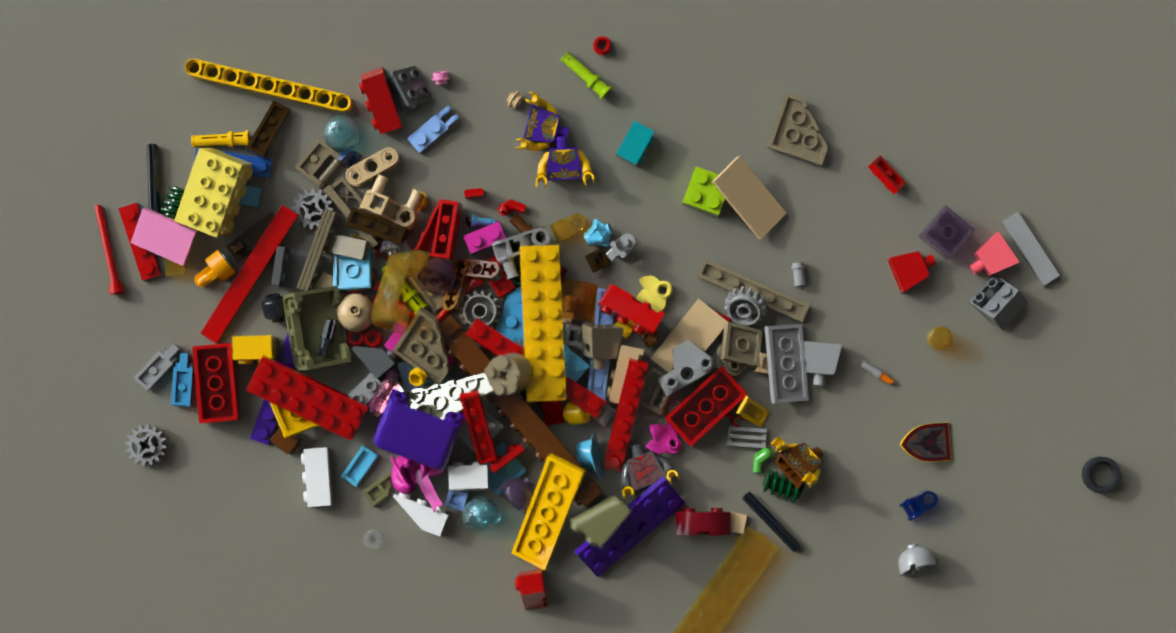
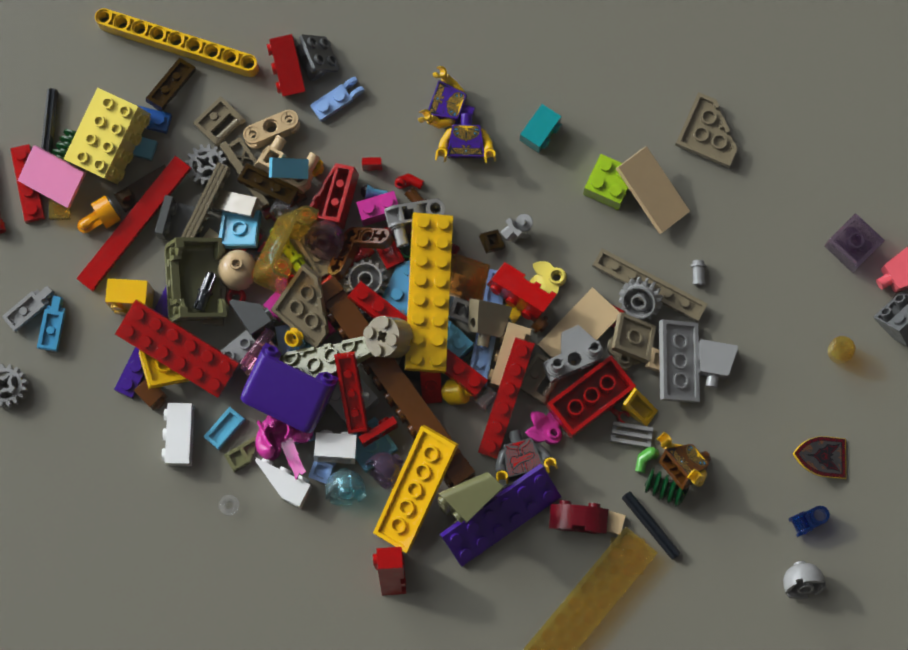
camera: 10 degrees right, 10 degrees down
(216, 383) = (86, 329): red brick -> none
(231, 139) = (132, 90): yellow pin -> none
(273, 307) = (154, 259): black head -> none
(348, 139) = (245, 94): clear light blue cylinder -> none
(349, 158) = (248, 118): dark blue tile -> none
(378, 338) = (253, 294): red plate -> none
(395, 212) = (288, 168): none -> medium azure tile
(440, 77) = (349, 49): bright pink plate -> none
(514, 99) = (422, 77): tan plate -> none
(564, 228) = (463, 206): clear yellow piece -> none
(589, 455) = (465, 435): medium azure piece -> none
(593, 81) = (502, 65): lime pin -> none
(598, 234) = (495, 214): medium azure rock -> none
(602, 39) = (515, 27): red plate -> none
(876, 372) = (773, 380): light grey piece -> none
(887, 174) = (796, 181): red plate -> none
(910, 269) = (814, 277): red torso -> none

